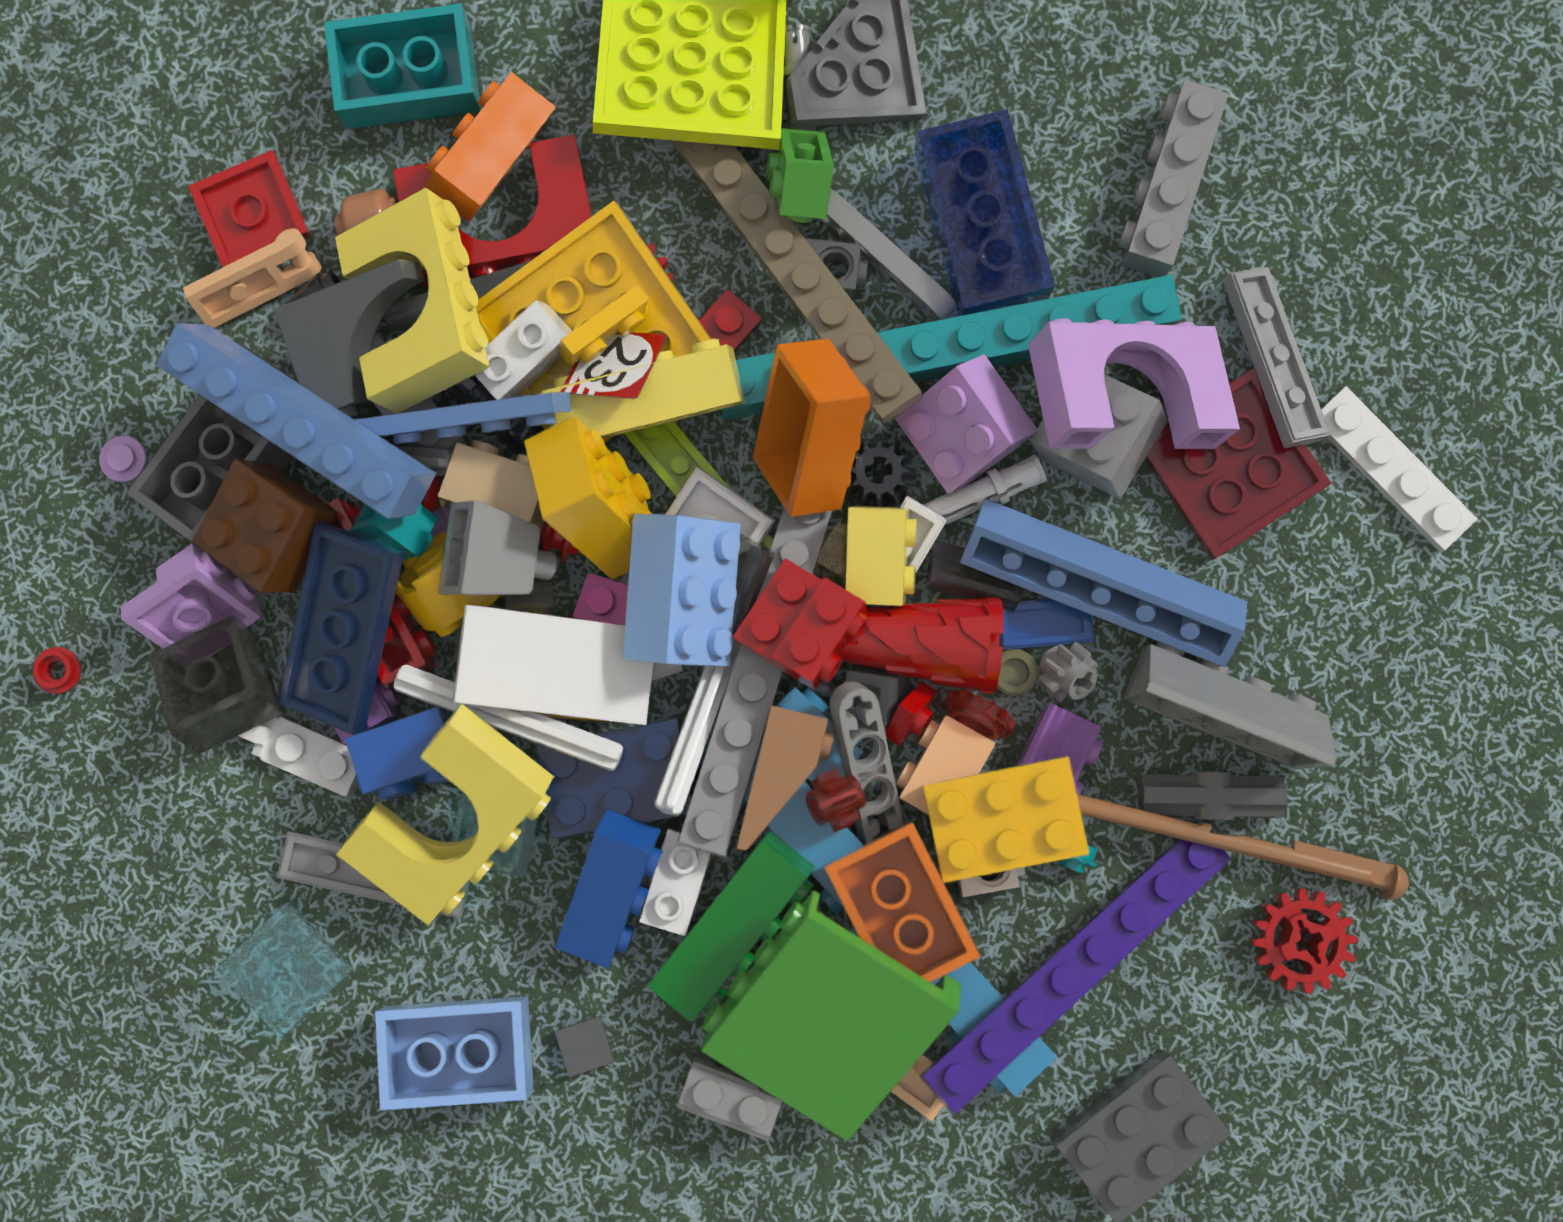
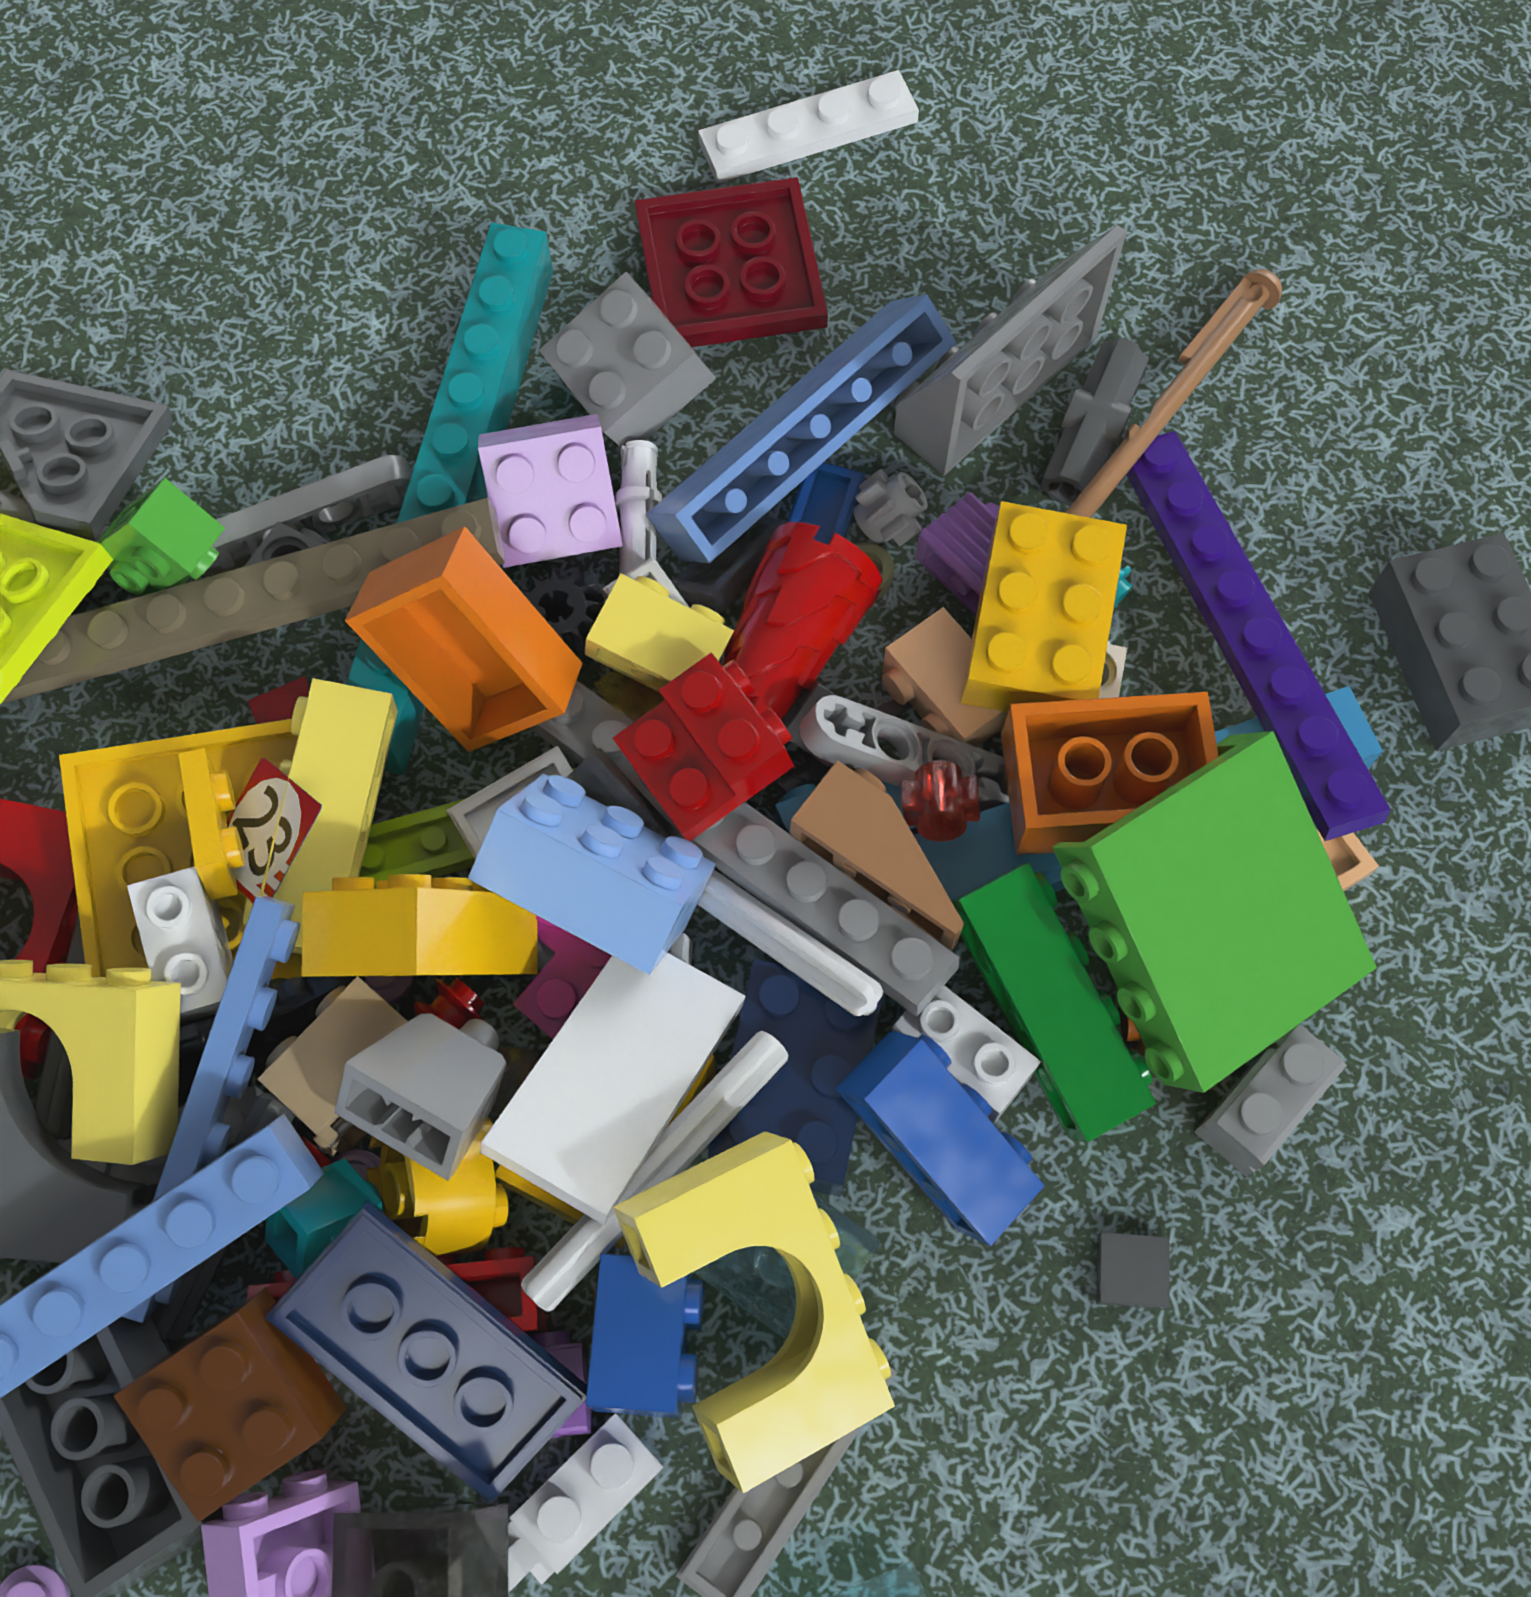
camera: 70 degrees left, 15 degrees down
(454, 1053) = (1085, 1450): light blue brick -> none
(912, 714) = (866, 684): red plate -> none
(979, 714) = (898, 612): clear red gear -> none
(983, 213) = (313, 385): clear blue brick -> none
(1174, 178) = (386, 194): light grey brick -> none
(1177, 358) = (548, 326): lavender arch -> none
(1276, 357) = (634, 176): light grey tile -> none
(1322, 932) = (1297, 388): red gear -> none

